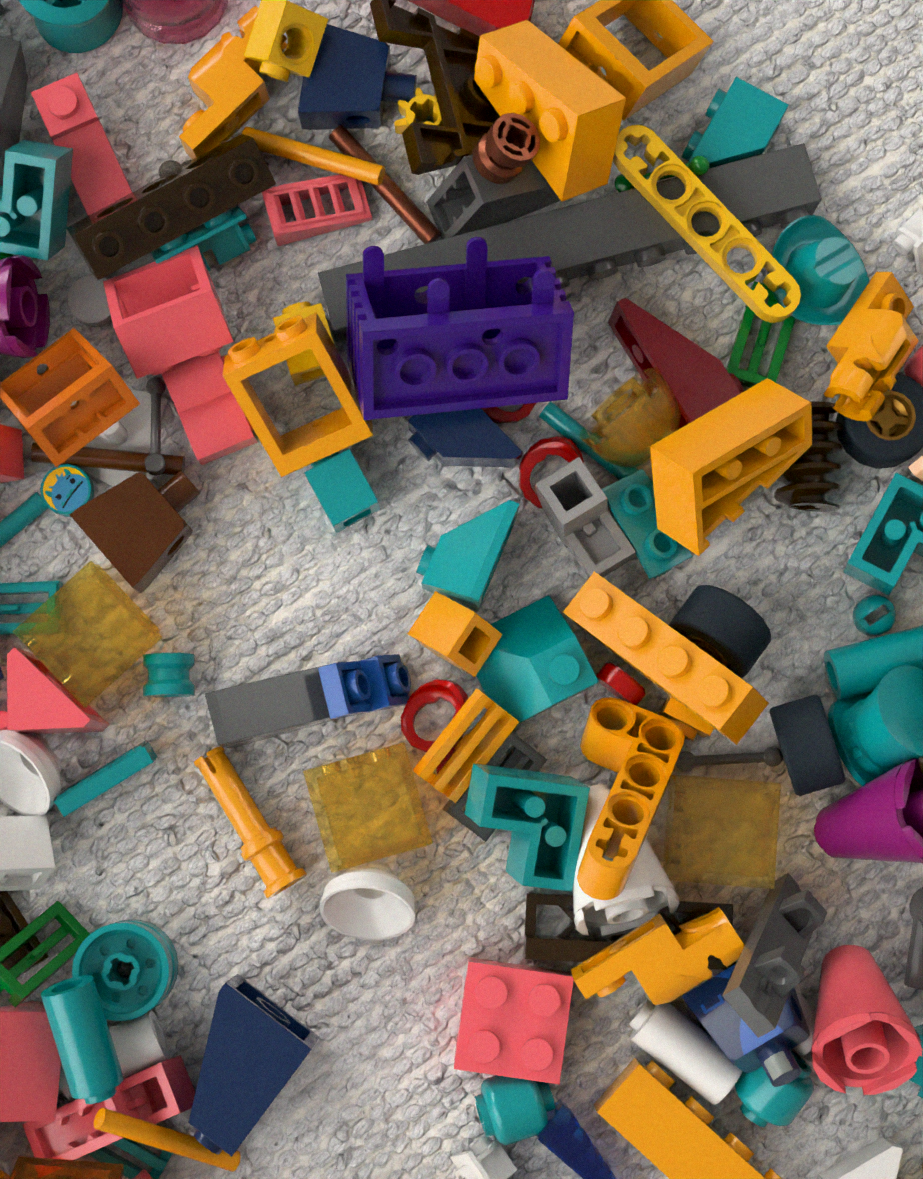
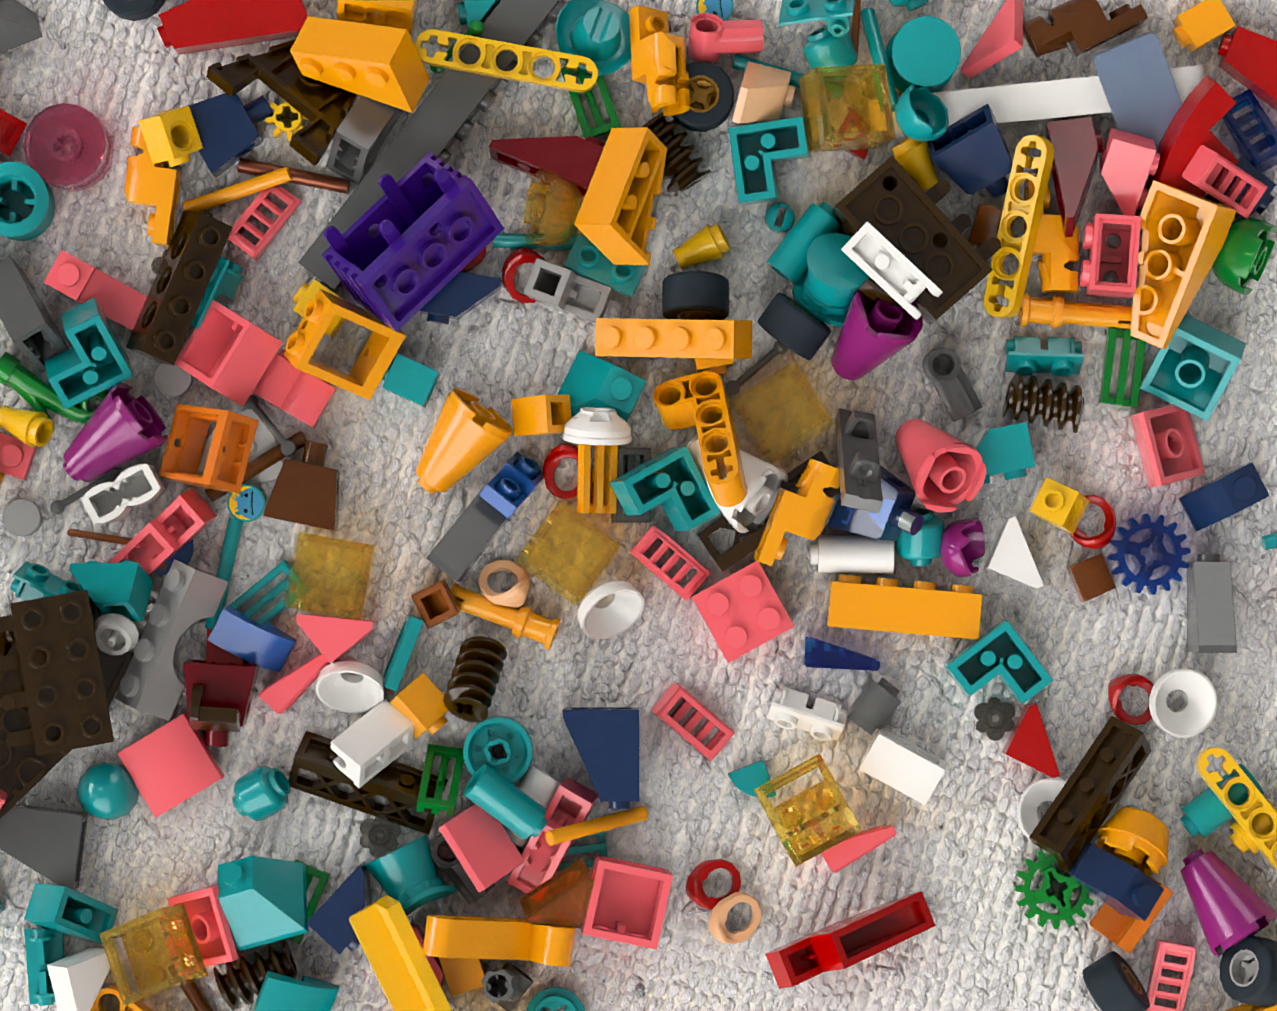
camera: 35 degrees left, 5 degrees up
(81, 855) = (422, 705): none -> light orange brick
(160, 868) = (474, 678): none -> dark brown piece
(168, 675) = (392, 565): teal wheel -> none
(182, 753) = (436, 604): none -> dark orange slope
(275, 811) = (516, 595): none -> light nougat piece
(344, 594) = (460, 441): none -> light orange cone
(357, 1056) = (670, 698): none -> coral slope
(467, 859) = (647, 540): none -> coral slope
(468, 556) = (515, 365): teal slope -> none
(506, 148) = (357, 108): copper wheel -> none
(506, 693) = (597, 427): none -> white piece
(513, 1108) = (779, 660): teal head -> none
(620, 684) = (660, 371): red tile -> none
(767, 583) = (704, 246): none -> yellow cone
(814, 1132) = (961, 545): none -> magenta hair

